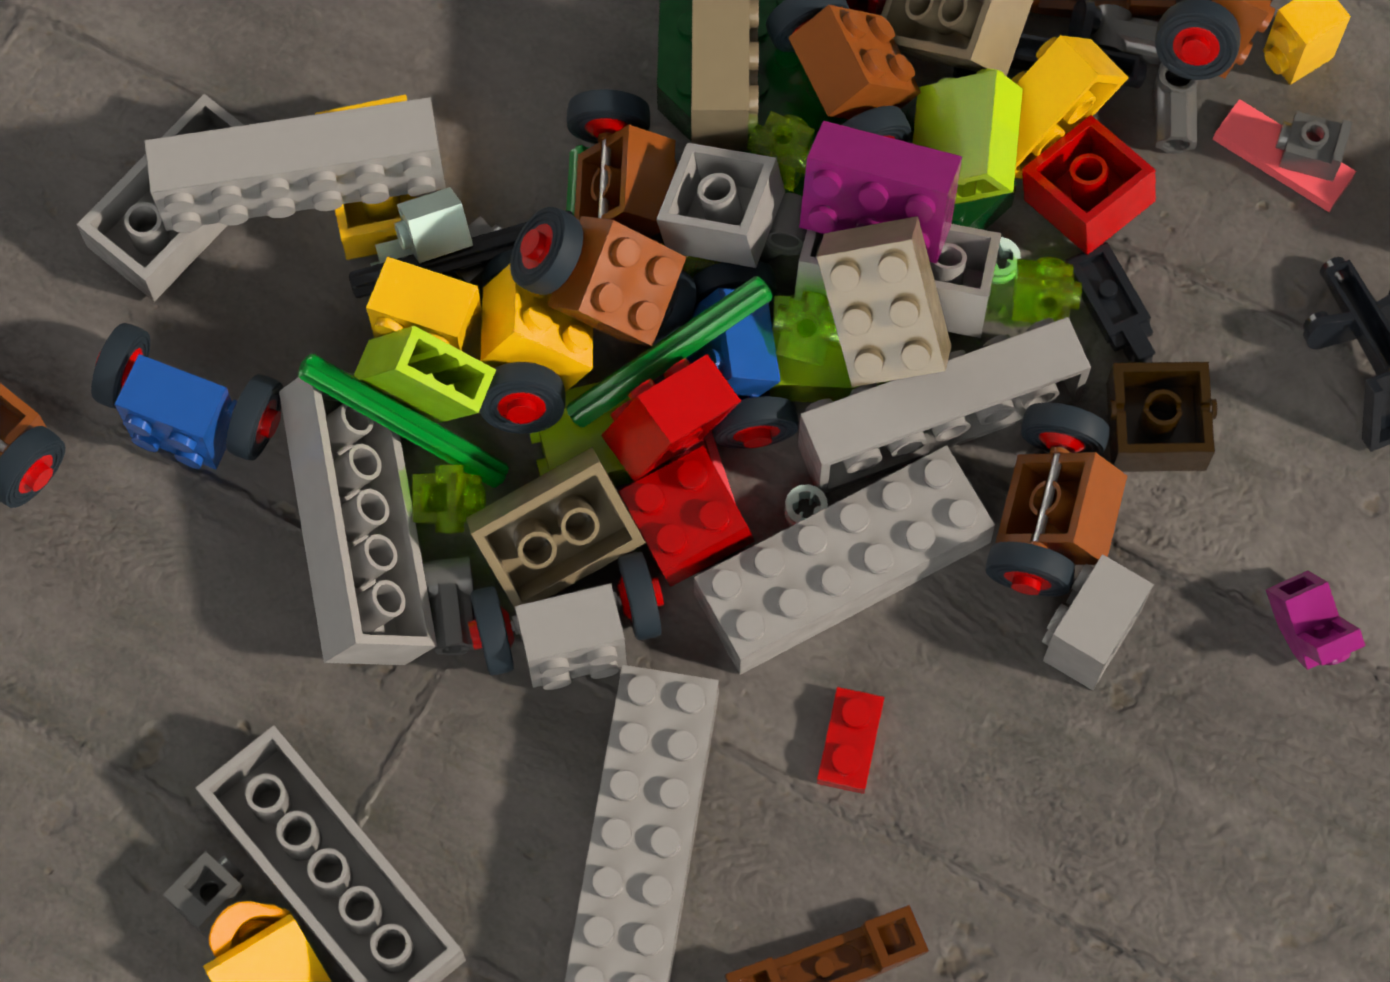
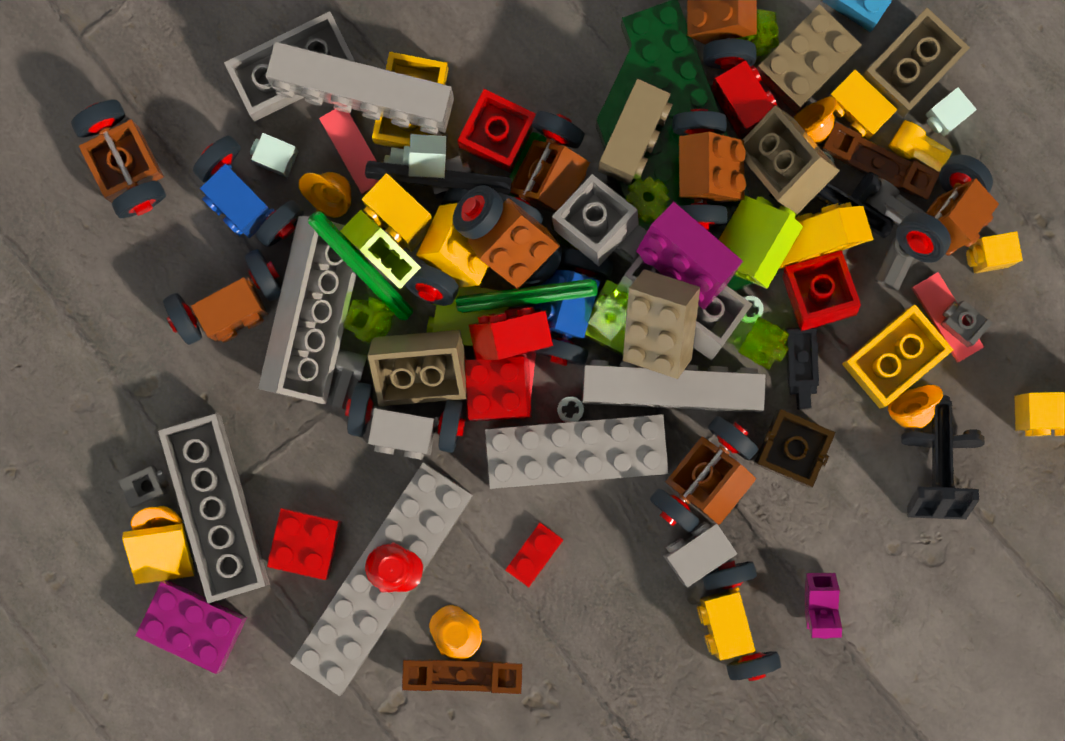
camera: 25 degrees right, 15 degrees up
(203, 331) = (273, 154): none -> light aqua brick
(227, 568) = (228, 308): none -> brick
(289, 342) = (327, 192): none -> light orange hat
(312, 278) = (350, 146): none -> coral tile
(493, 869) = (304, 544): none -> red brick
(518, 161) = (497, 130): none -> red brick
(648, 835) = (393, 568): none -> red hat
(785, 909) = (455, 632): none -> light orange hat
(1190, 702) = (728, 623): none -> brick
(1241, 230) = (897, 356): none -> yellow brick
(1303, 288) = (915, 406): none -> light orange hat

